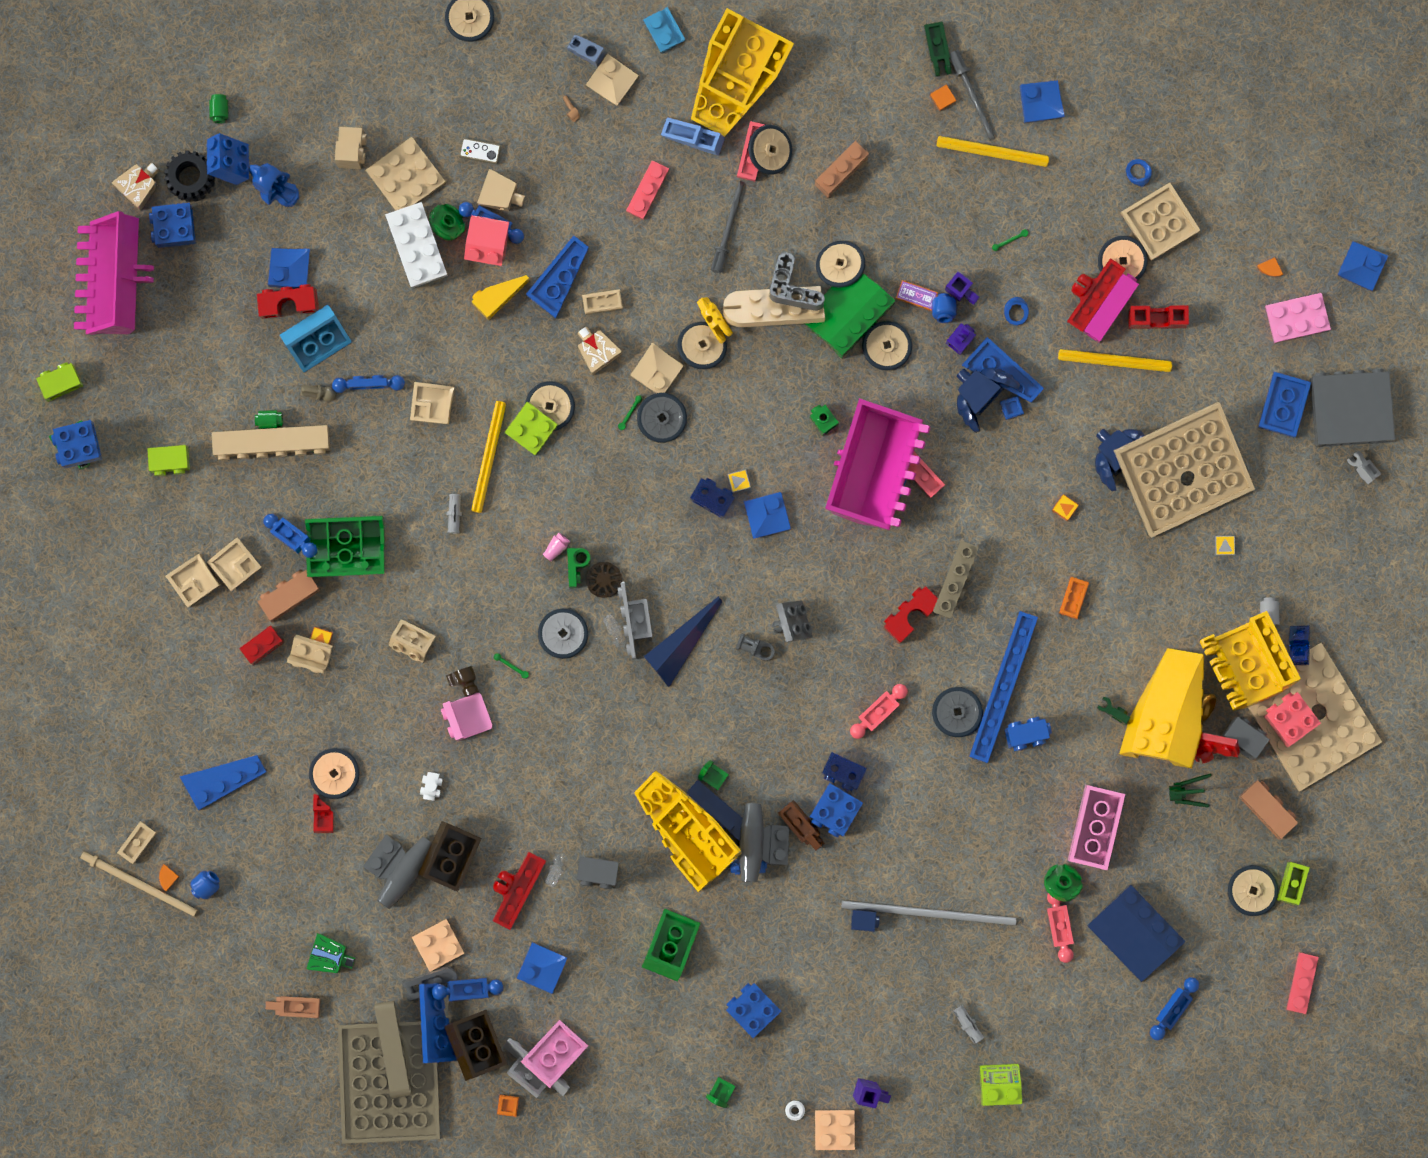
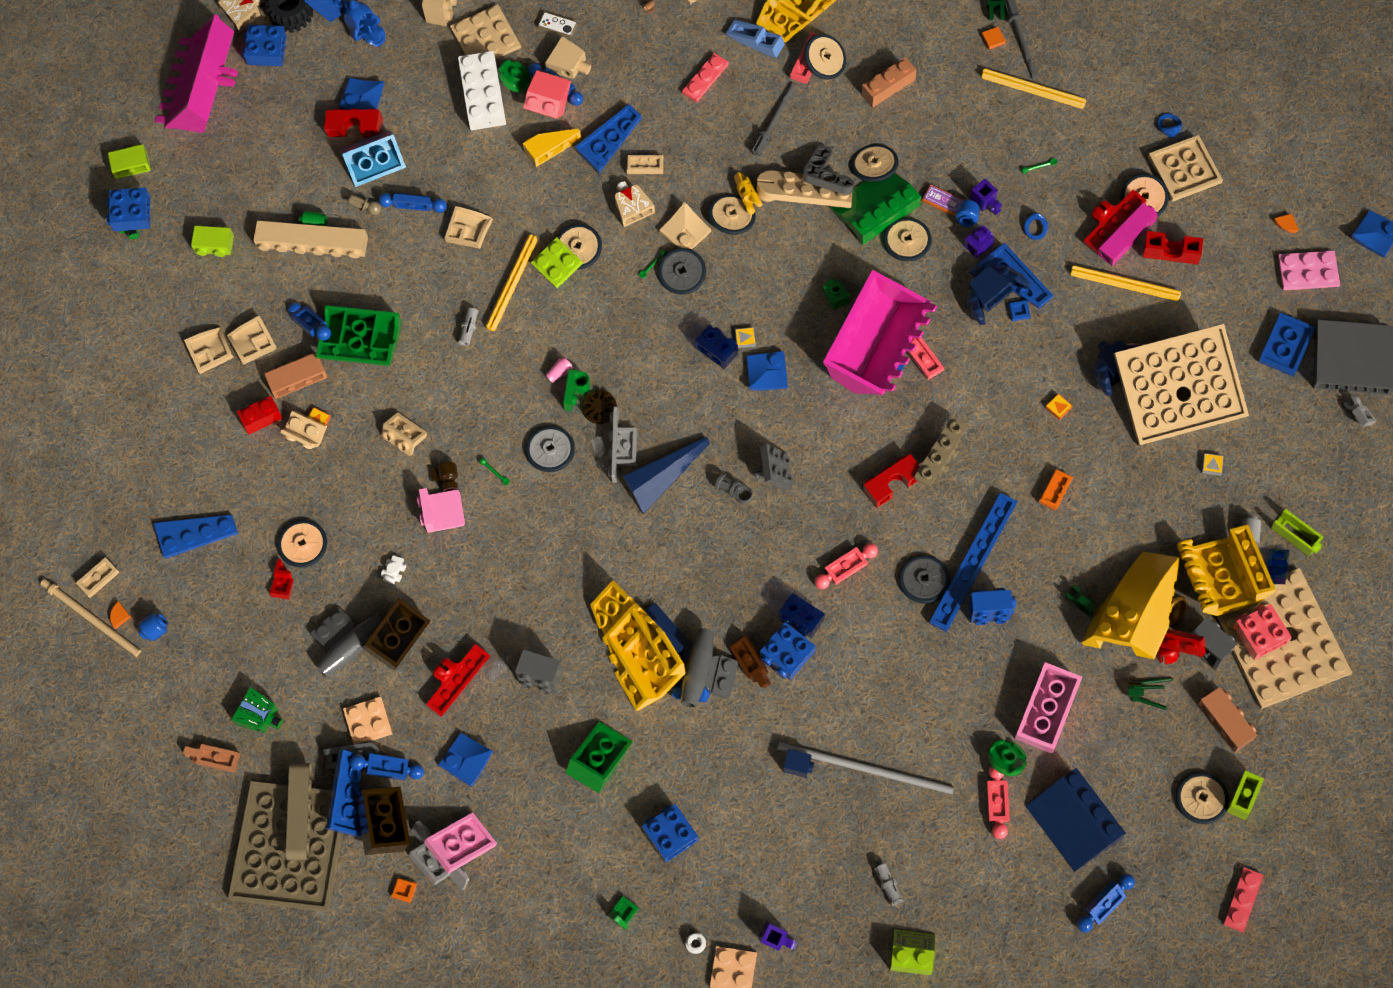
camera: 15 degrees right, 15 degrees down
(712, 775) = (670, 601): green tile -> none
(1041, 101) = (1085, 52): blue plate -> none
(1333, 617) = (1302, 528): none -> lime window

